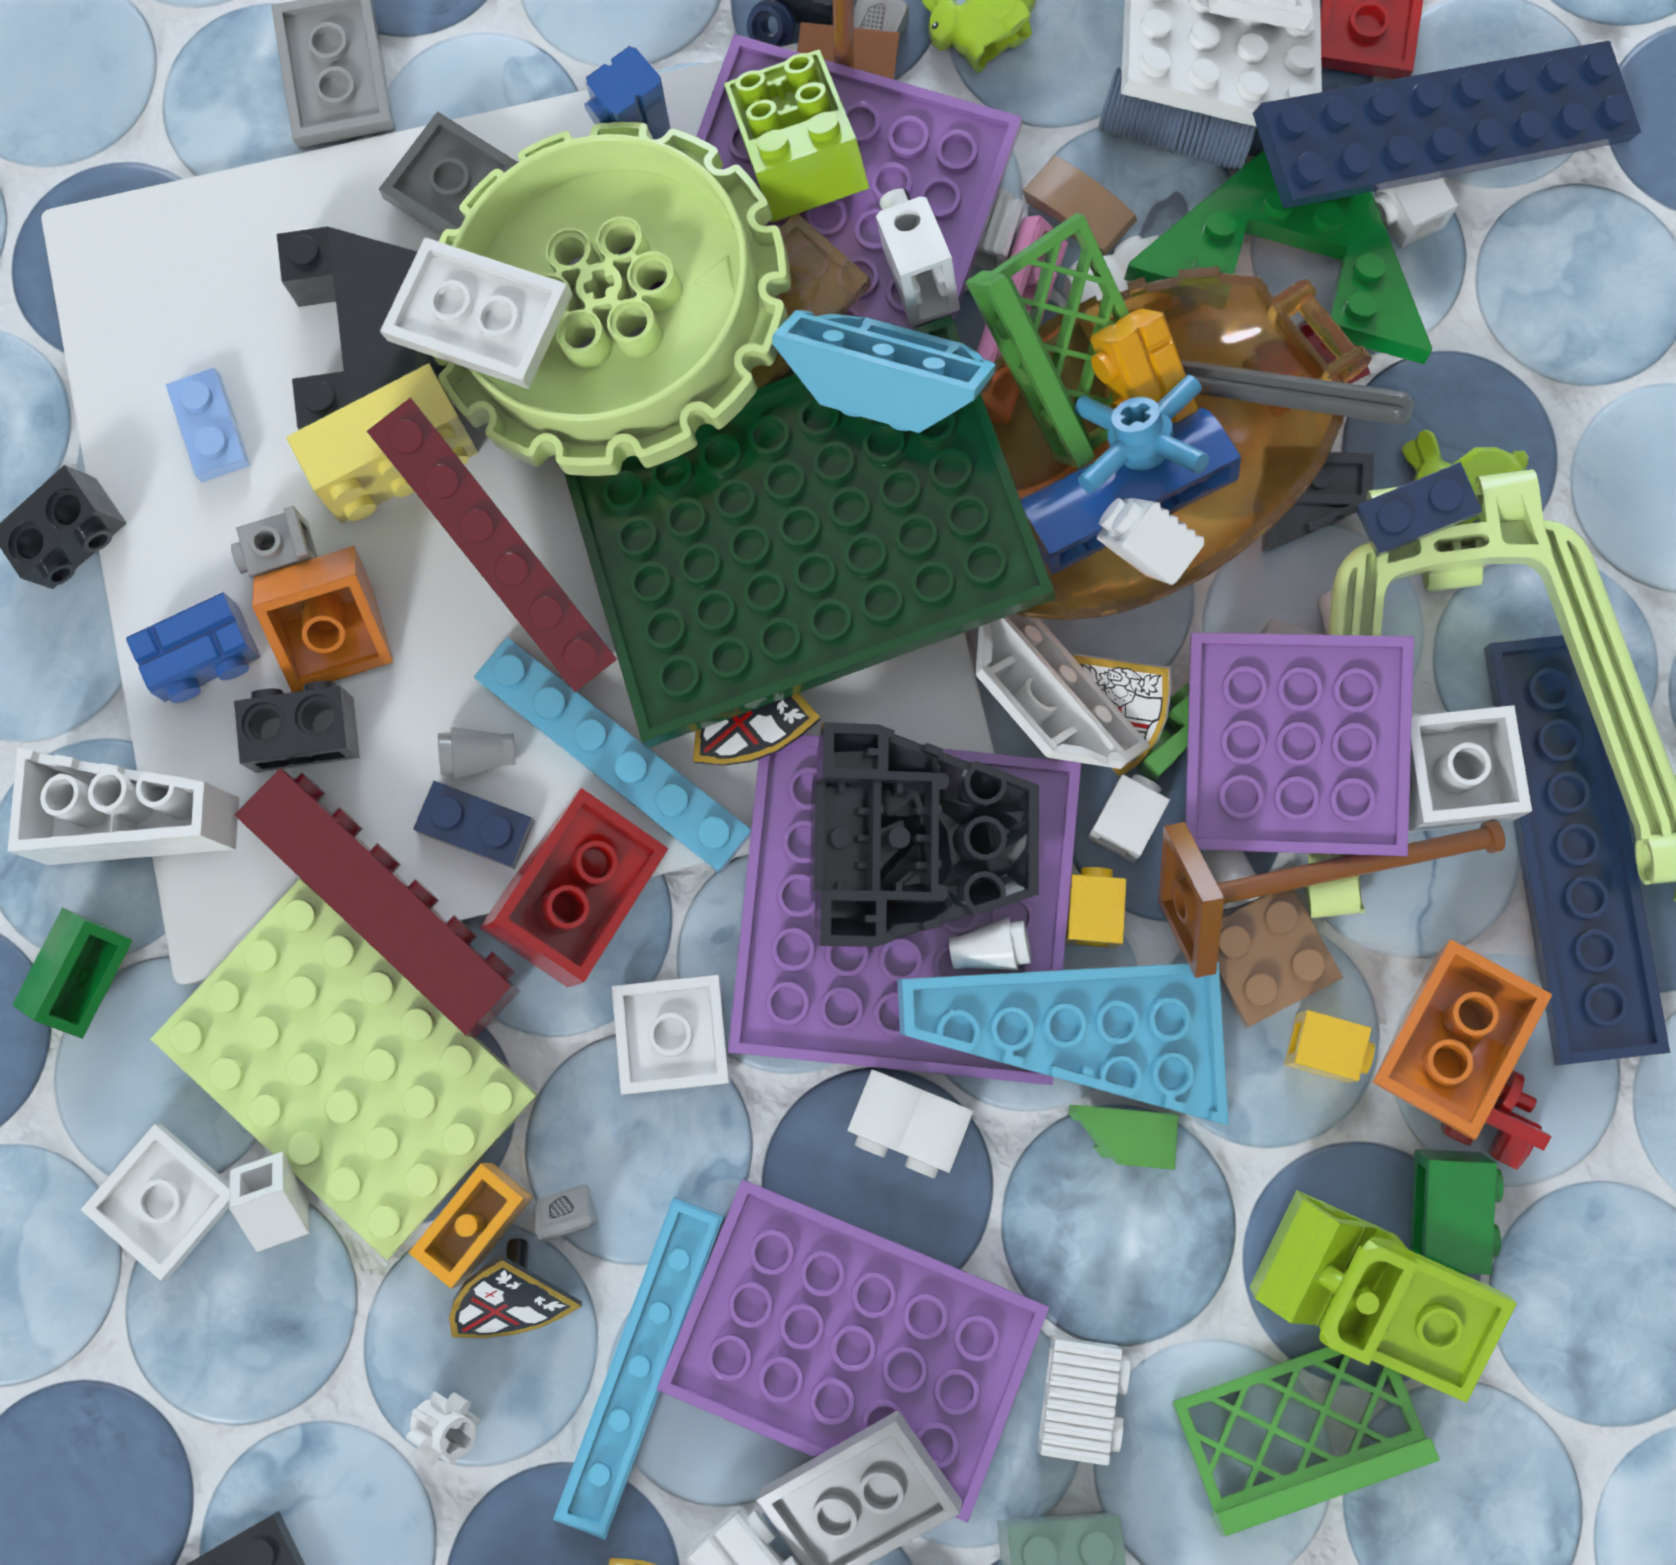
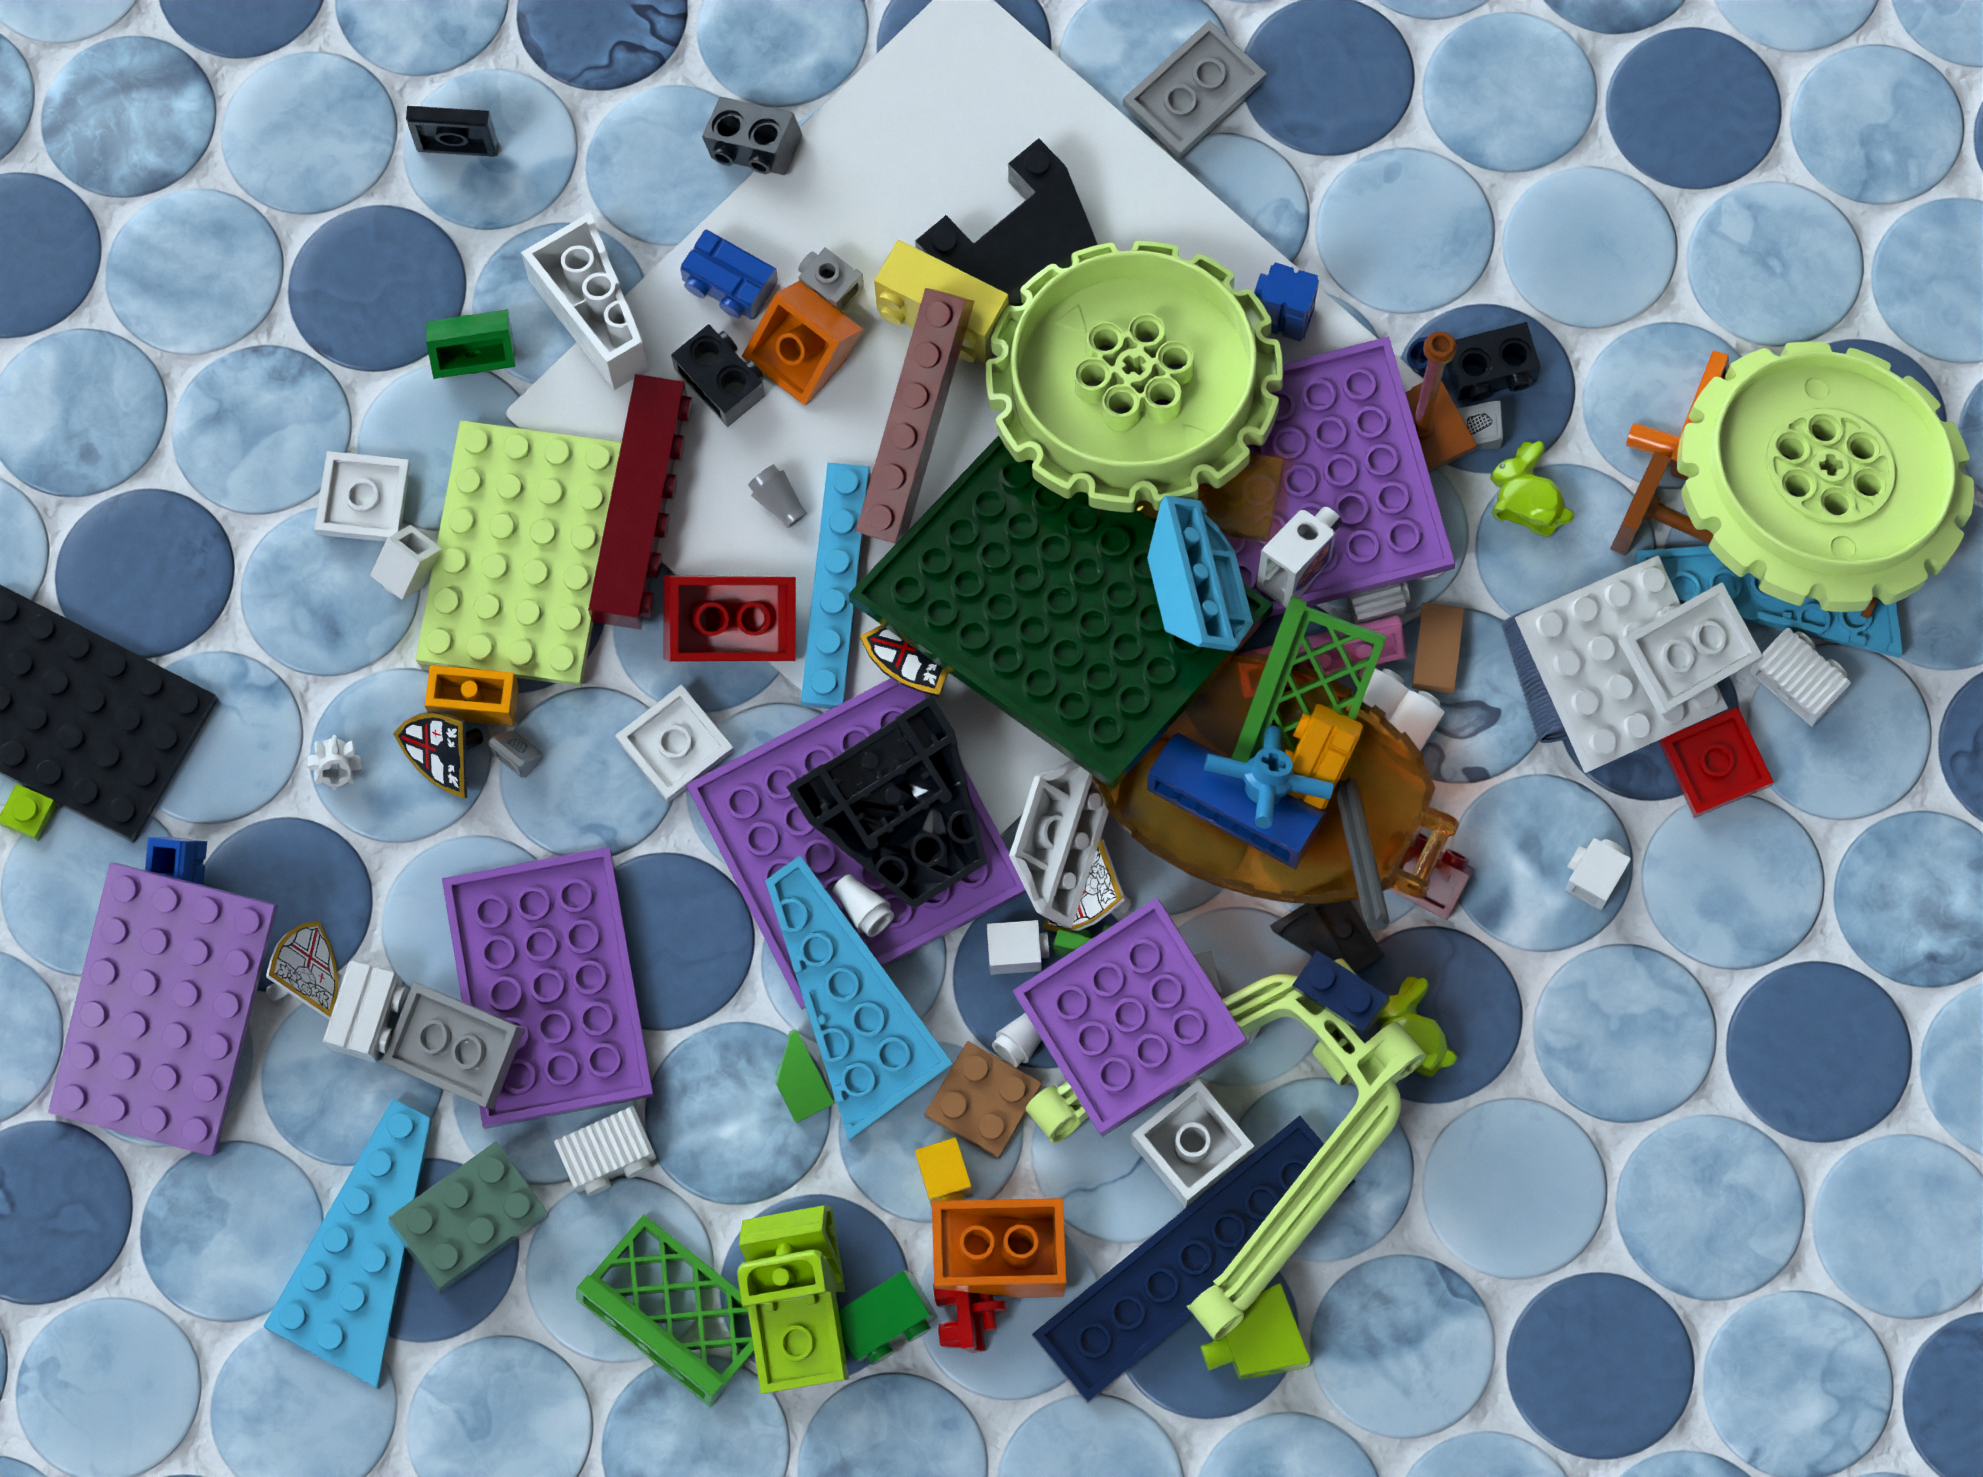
camera: 55 degrees right, 5 degrees down
(207, 425) = (885, 180): light blue plate -> none
(441, 173) = (1162, 213): dark grey plate -> none
(474, 824) = (730, 528): dark blue plate -> none
(476, 312) = (1055, 302): white plate -> none
(636, 1369) = (426, 865): medium azure tile -> none
(797, 135) = (1336, 423): lime slope -> none
(909, 1122) = (715, 930): white brick -> none
(1096, 909) = (937, 963): yellow brick -> none
(1149, 538) = (1191, 820): white brick -> none
(1196, 902) = (980, 1015): dark orange tile -> none
(1370, 292) = (1538, 795): green wing -> none
(1445, 123) = (1662, 857): dark blue plate -> none

